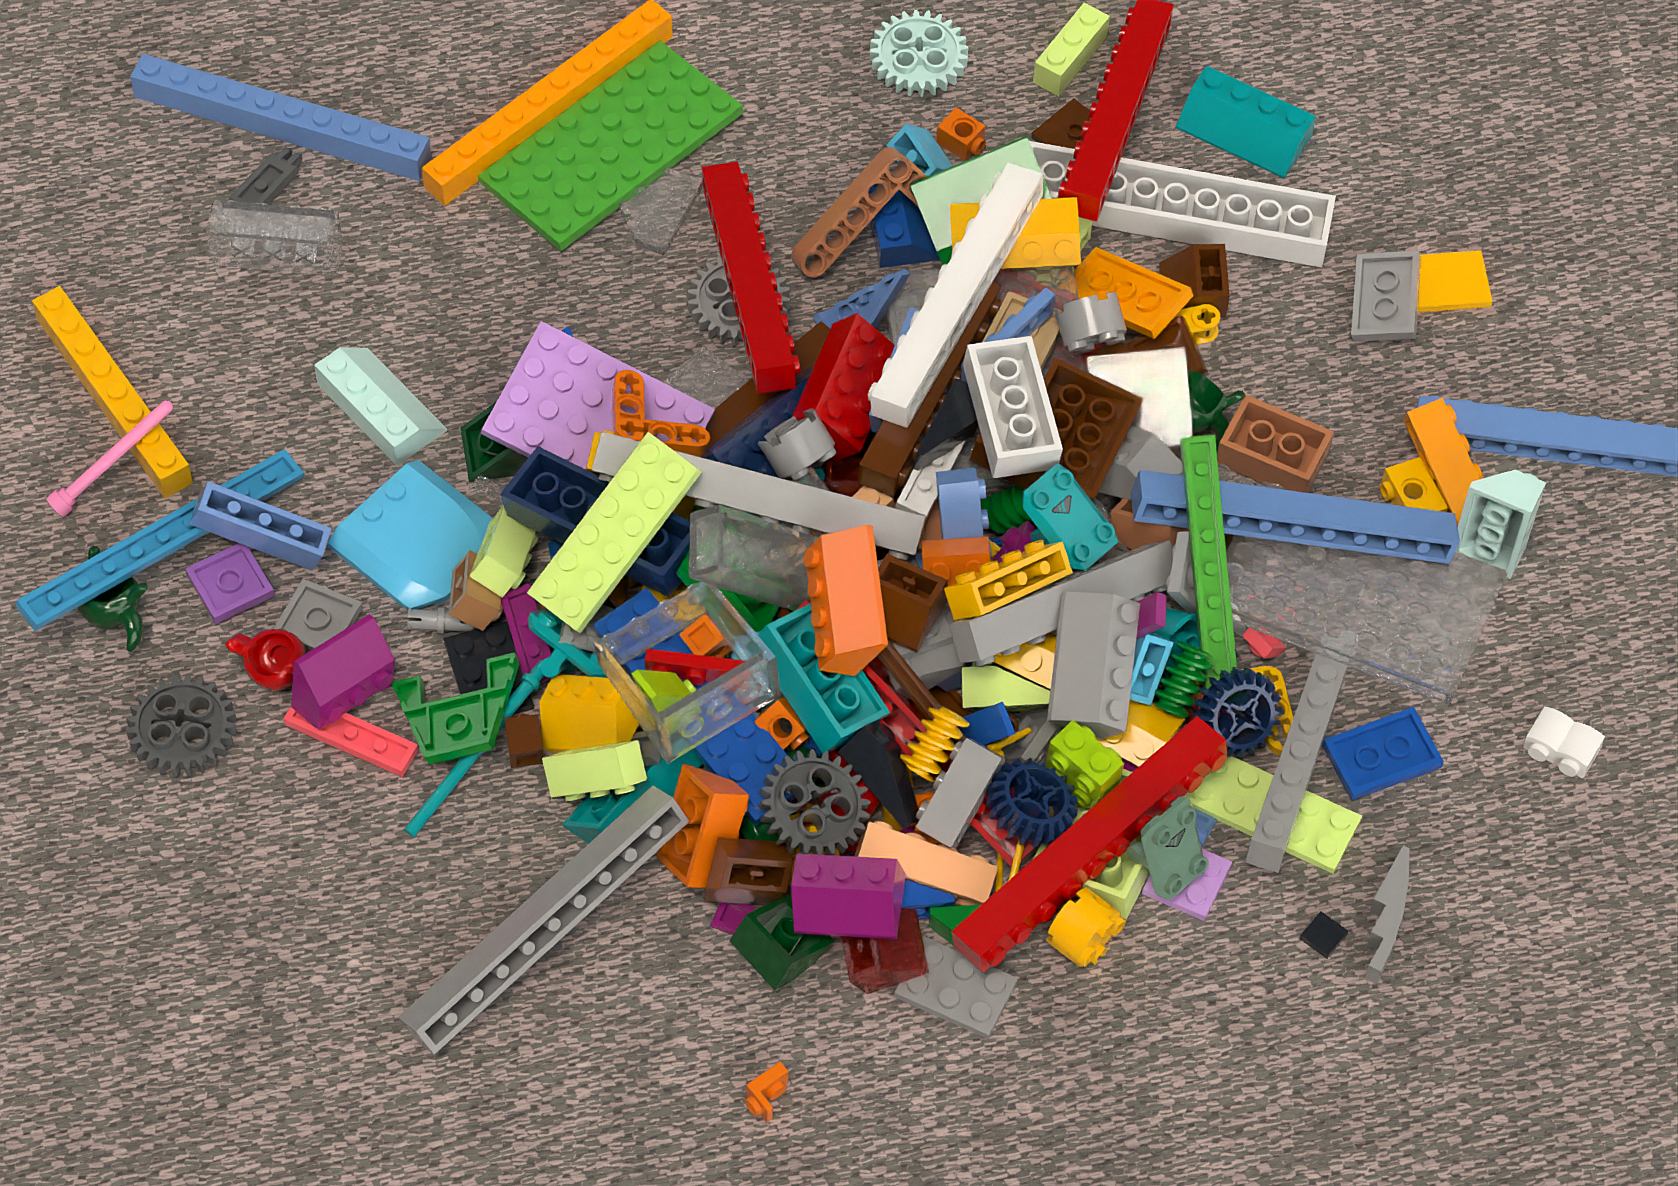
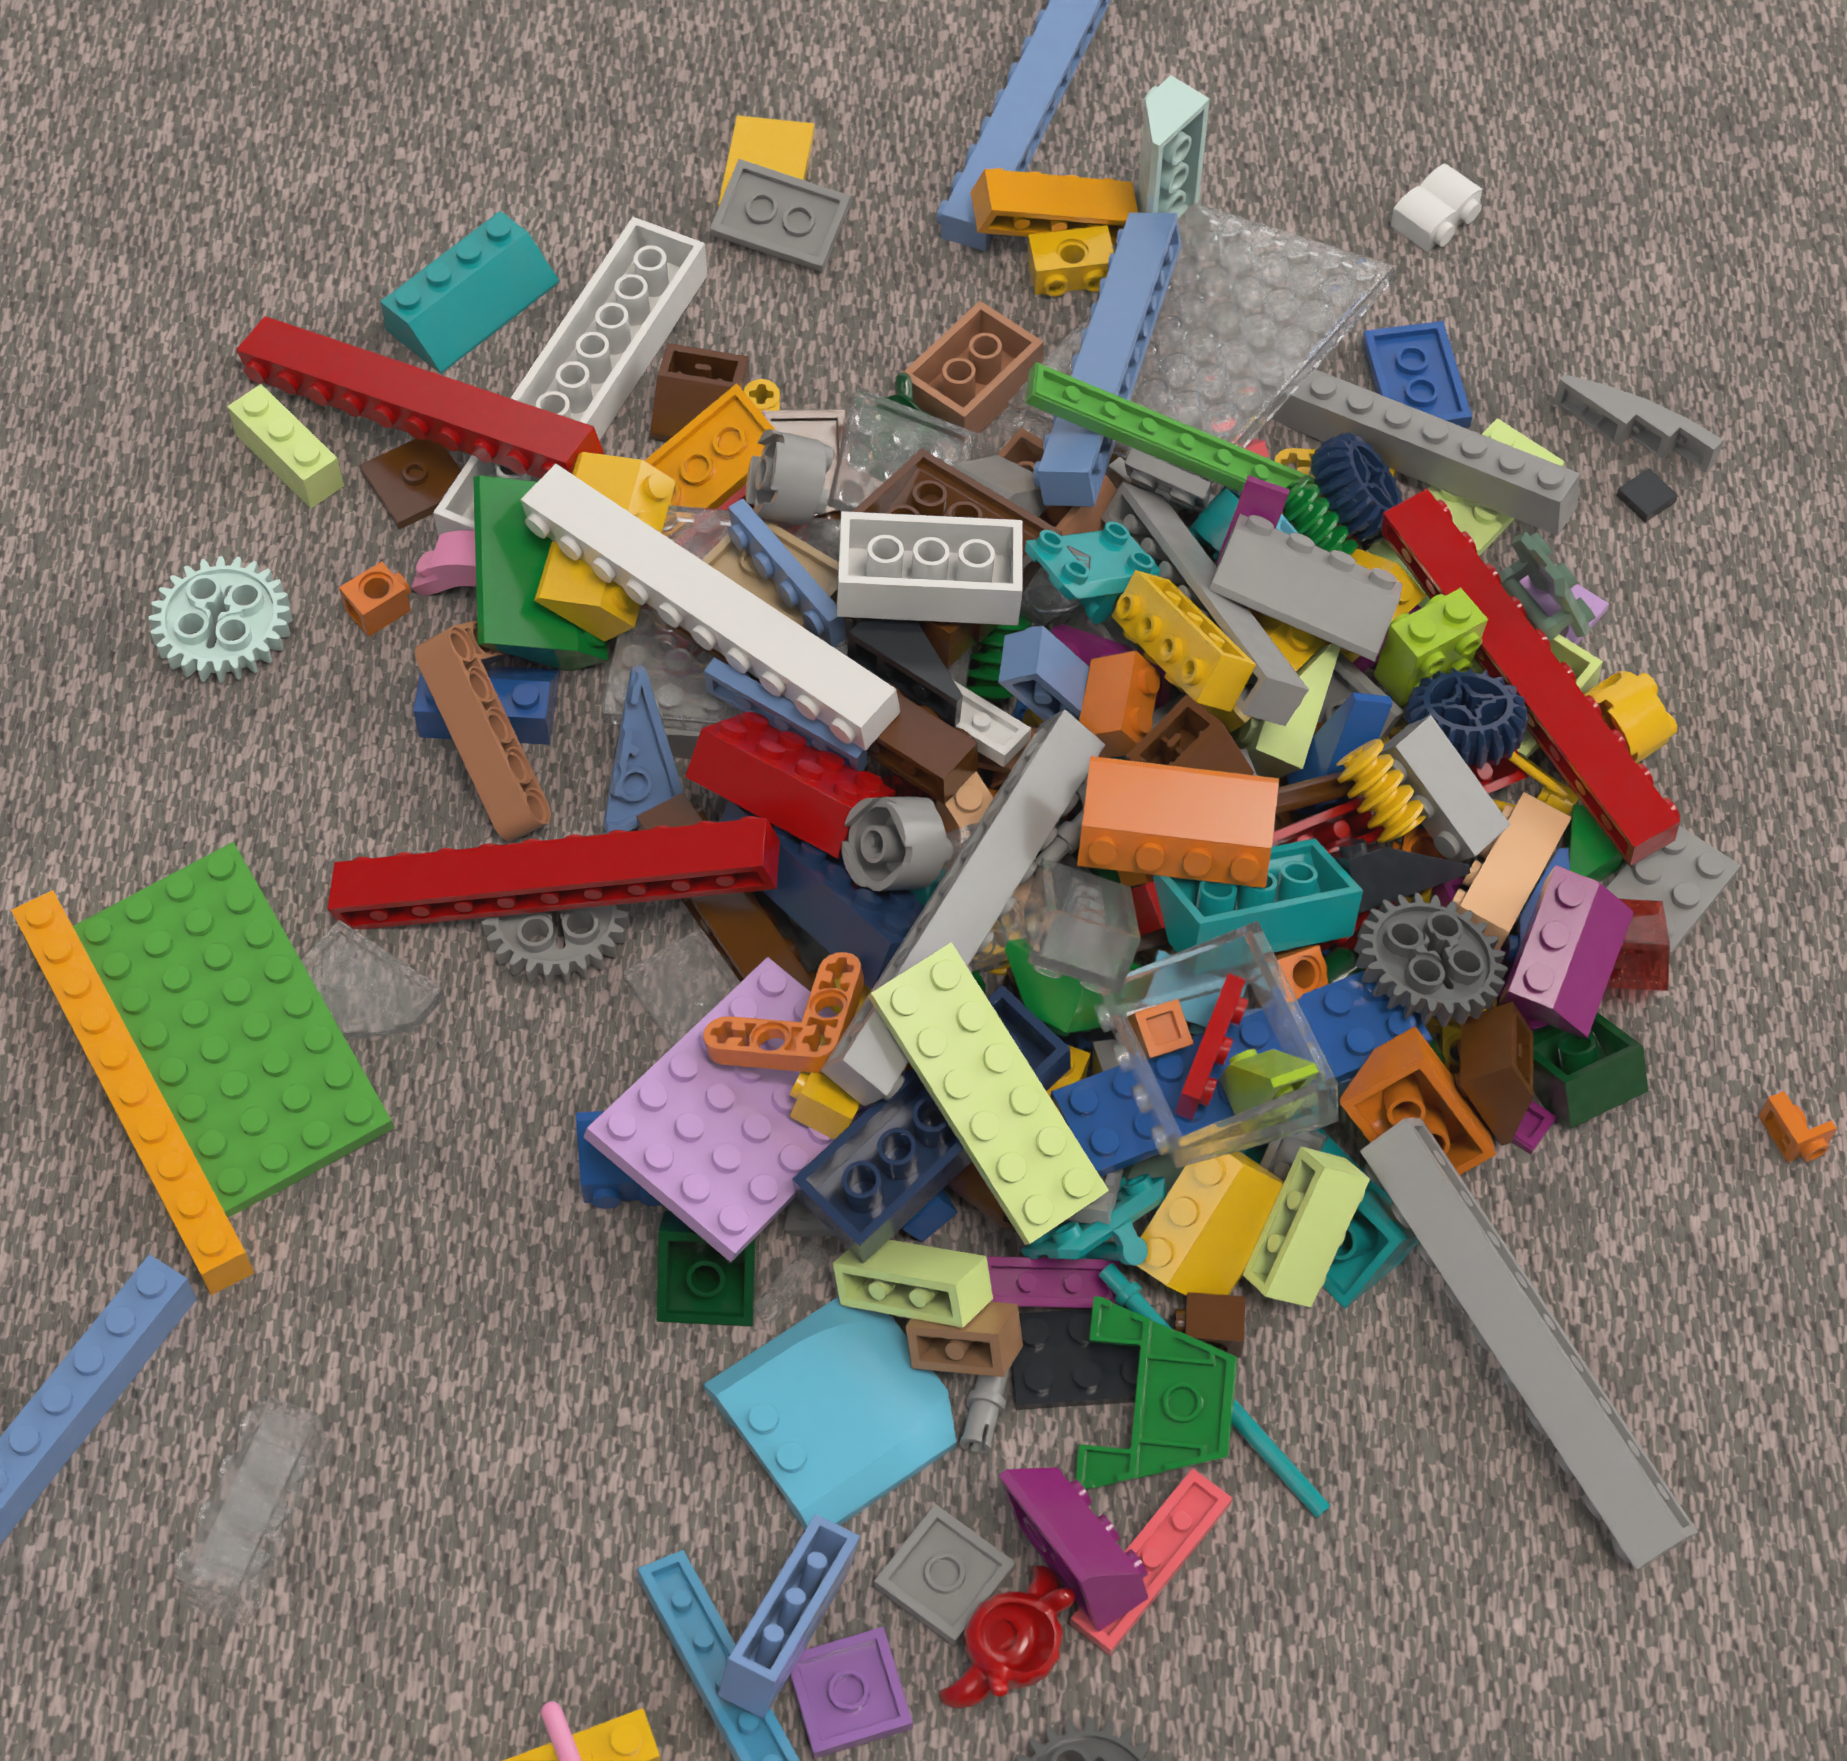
camera: 75 degrees left, 0 degrees up
(268, 178) = (128, 1519): dark grey hinge -> none
(377, 402) = (589, 1422): light aqua slope -> none
(920, 149) = (391, 648): medium azure brick -> none

